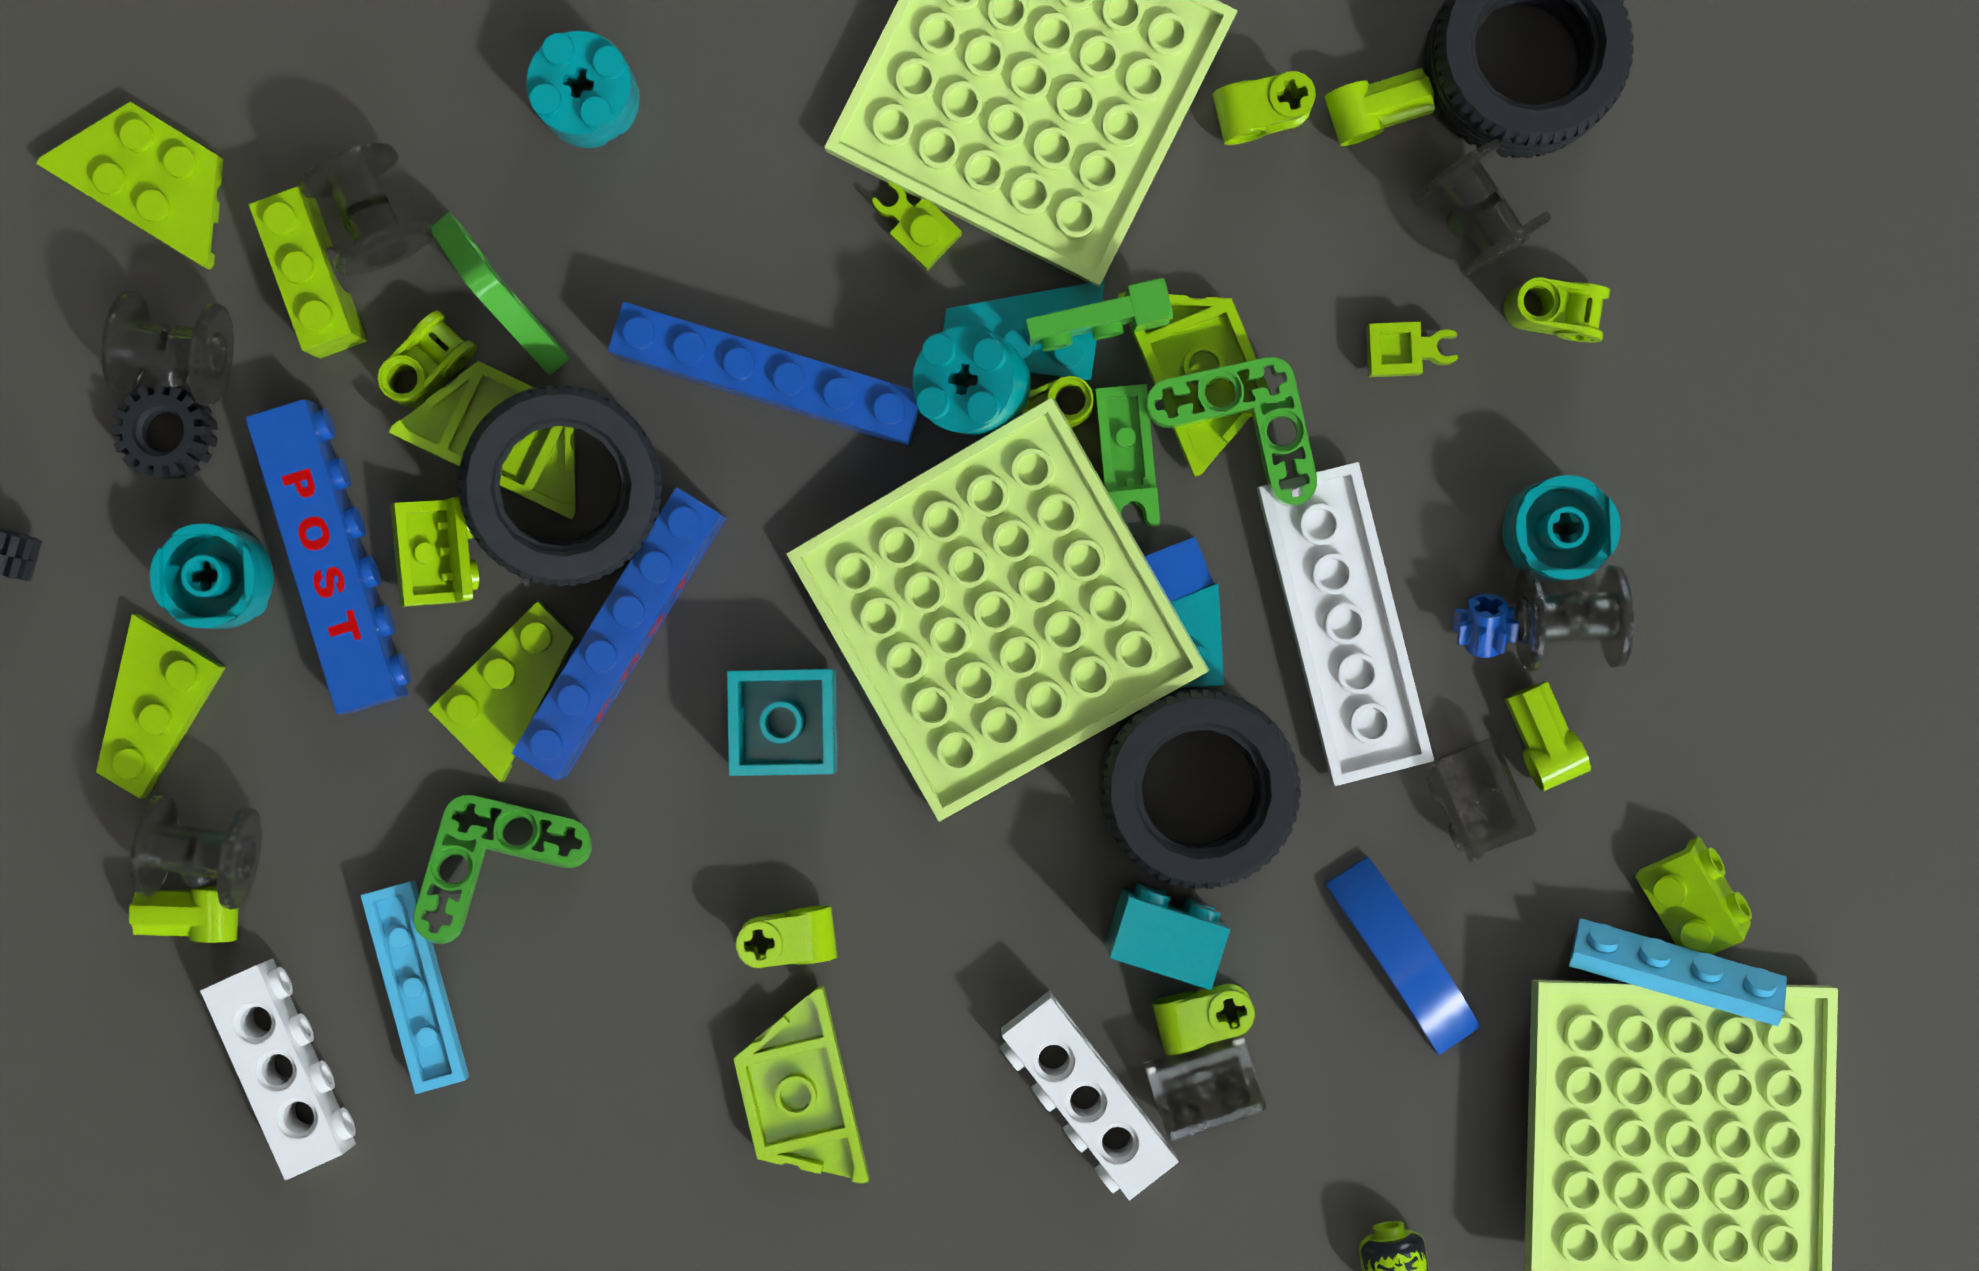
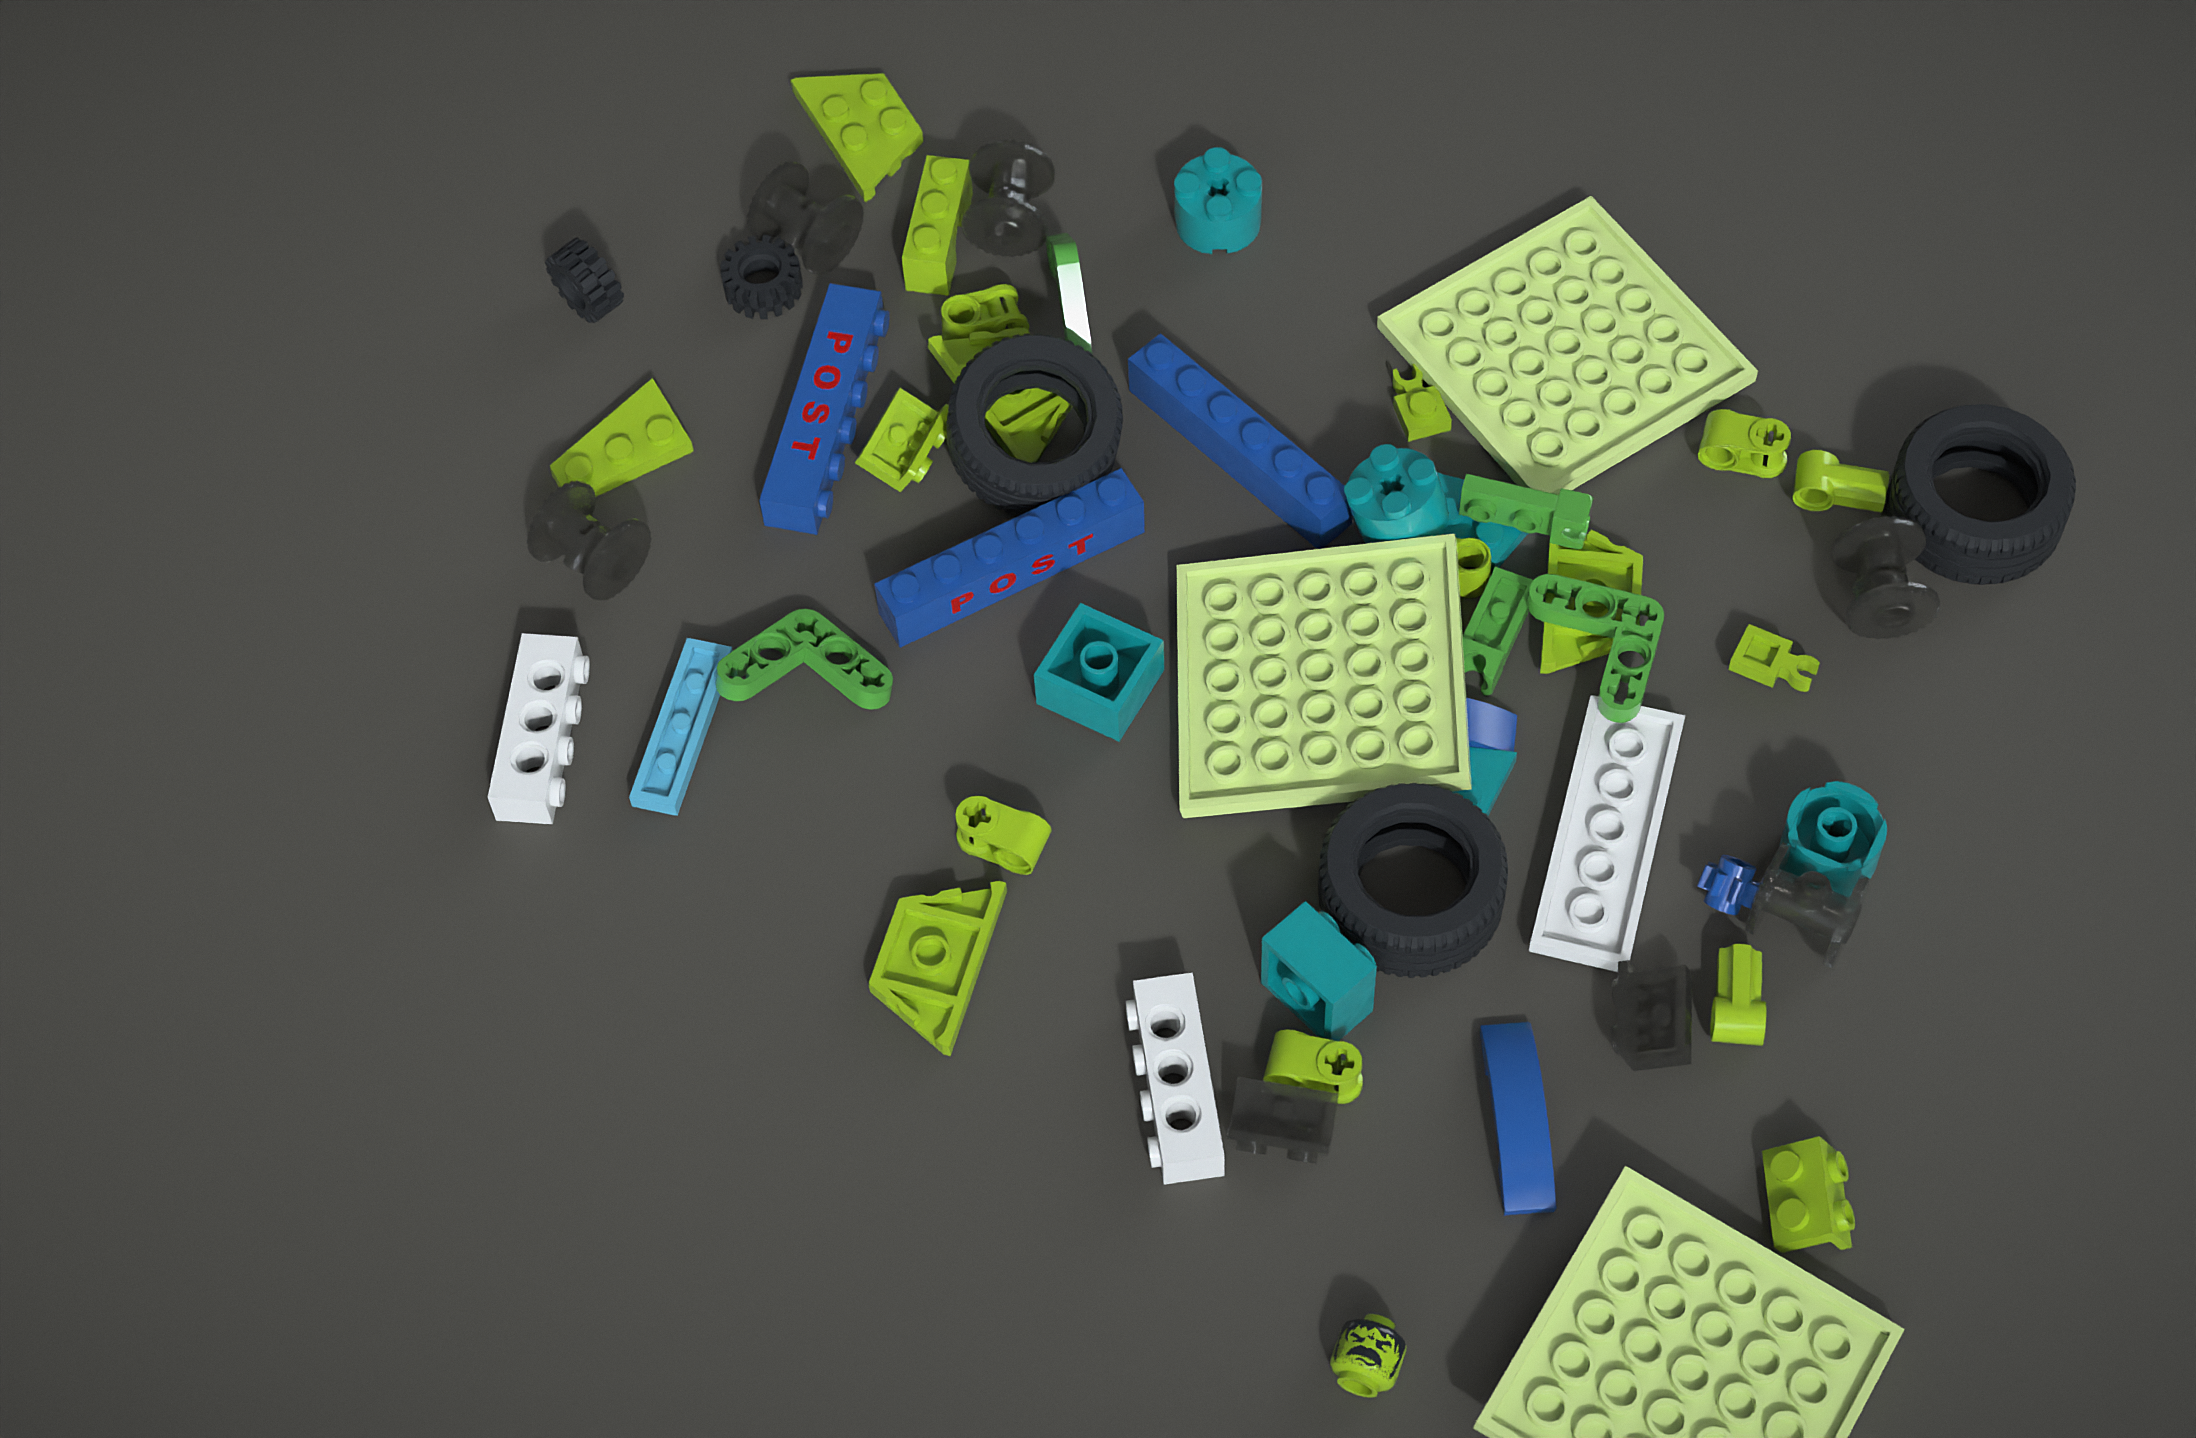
camera: 30 degrees right, 30 degrees down
(182, 570) = (731, 375): teal brick -> none
(184, 914) = (554, 594): lime piece -> none
(506, 688) = (882, 553): lime wing -> none
(1568, 309) = (1919, 688): lime piece -> none
(1679, 972) = (1774, 1238): medium azure plate -> none

